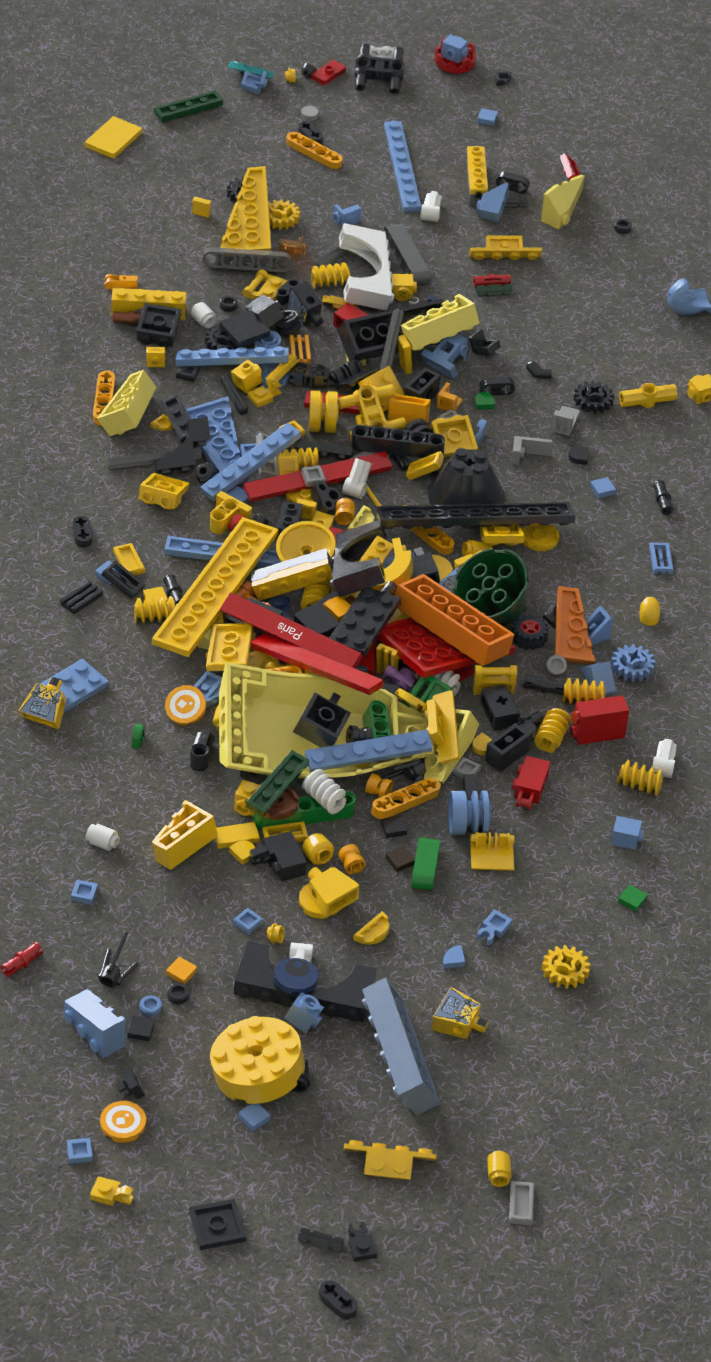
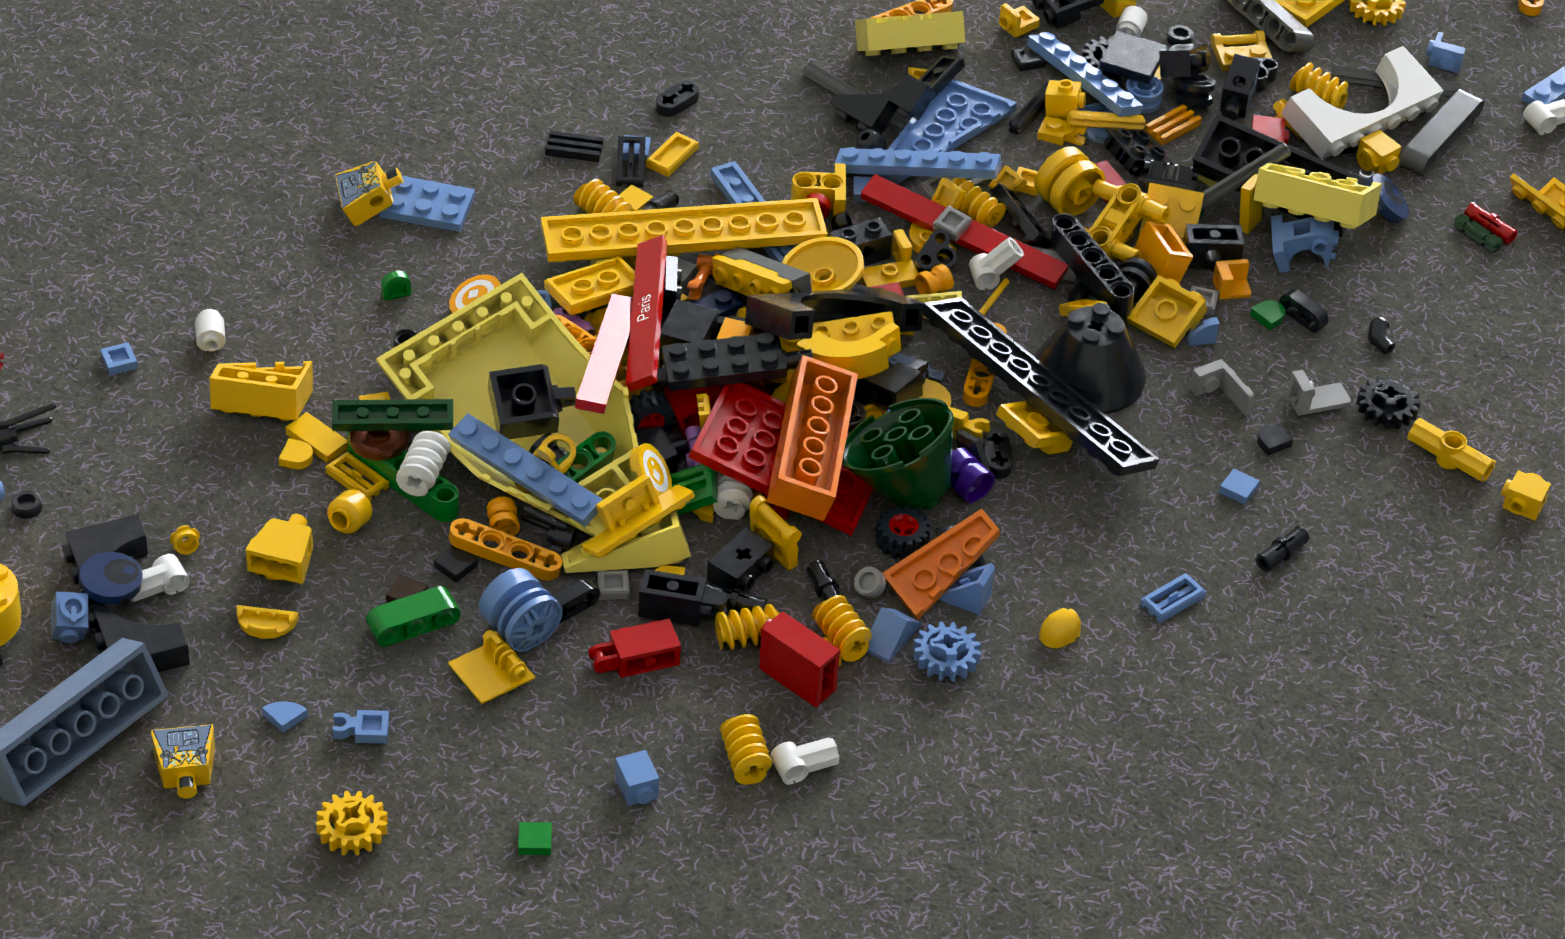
camera: 55 degrees right, 0 degrees up
(162, 491) = (804, 124): yellow plate -> none
(181, 970) = (63, 490): light orange tile -> none
(248, 921) = (189, 510): medium blue tile -> none
(282, 855) = (312, 485): black hinge -> none
(294, 248) = (1330, 39): clear orange bracket -> none
(351, 858) = (360, 548): light orange wheel -> none
(378, 731) = (548, 455): none -> yellow piece
(472, 547) = (988, 411): yellow cone -> none
(481, 345) = (1363, 263): black bracket -> none
(540, 537) = (1081, 474): yellow tile -> none

